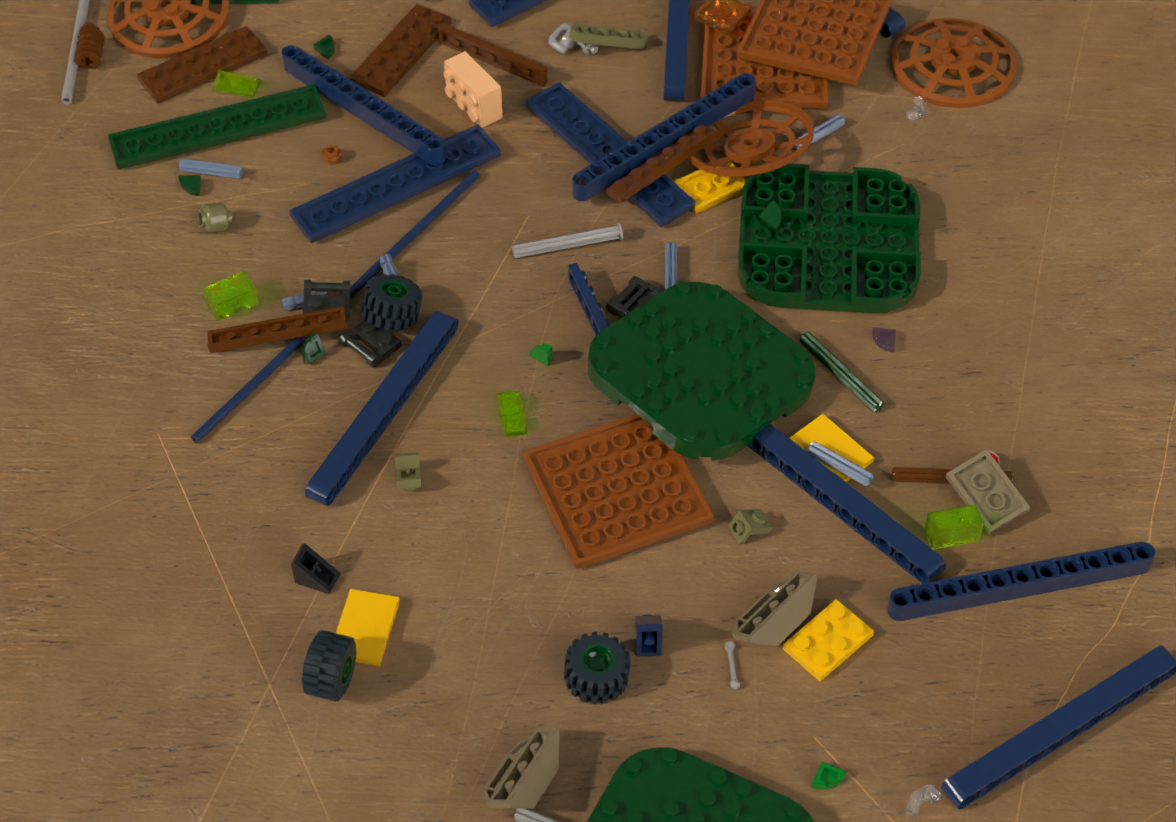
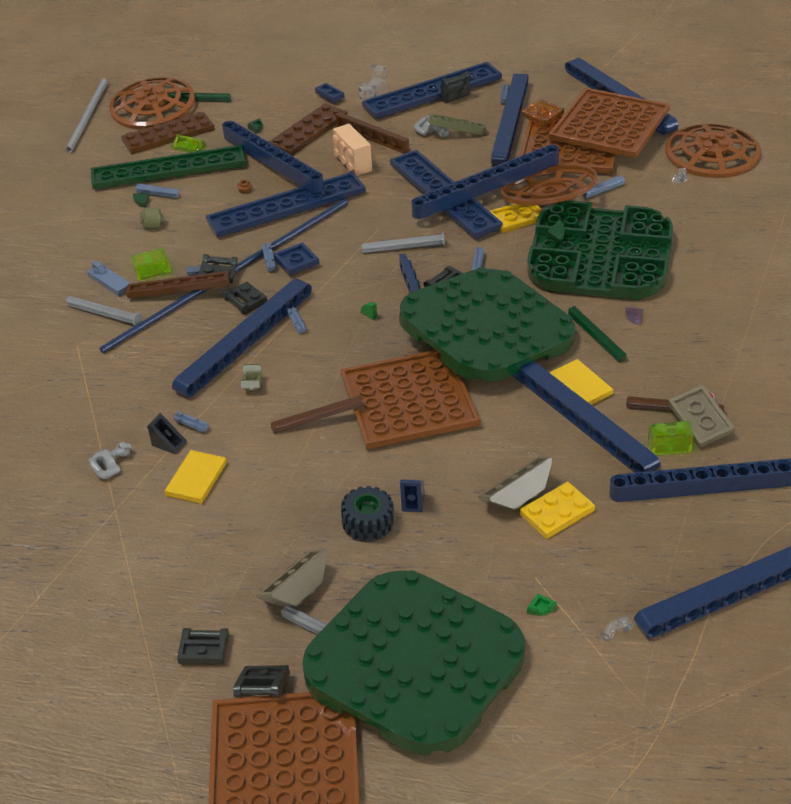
camera: 10 degrees right, 10 degrees down
(89, 46) = (92, 118): reddish brown piece -> none
(177, 322) = (108, 278): none -> sand blue hinge
(183, 375) = (104, 310): none -> light grey axle
(243, 612) = (107, 460): none -> light grey piece
(312, 348) = (201, 298): dark green tile -> none
(329, 665) = (159, 495): black wheel -> none
(340, 544) = (190, 421): none -> sand blue axle
(391, 302) = (264, 271): black wheel -> none
(430, 273) = (296, 258): none -> dark blue plate
(448, 375) = (297, 320): none -> sand blue axle
(505, 523) = (316, 414): none -> reddish brown axle
(511, 413) = (338, 346): clear neon green slope -> none
(661, 163) = (478, 198): reddish brown plate -> none
(730, 647) = (477, 510): light grey hinge -> none
(749, 523) = (507, 425): olive bracket -> none
(840, 463) = (586, 390): sand blue axle -> none

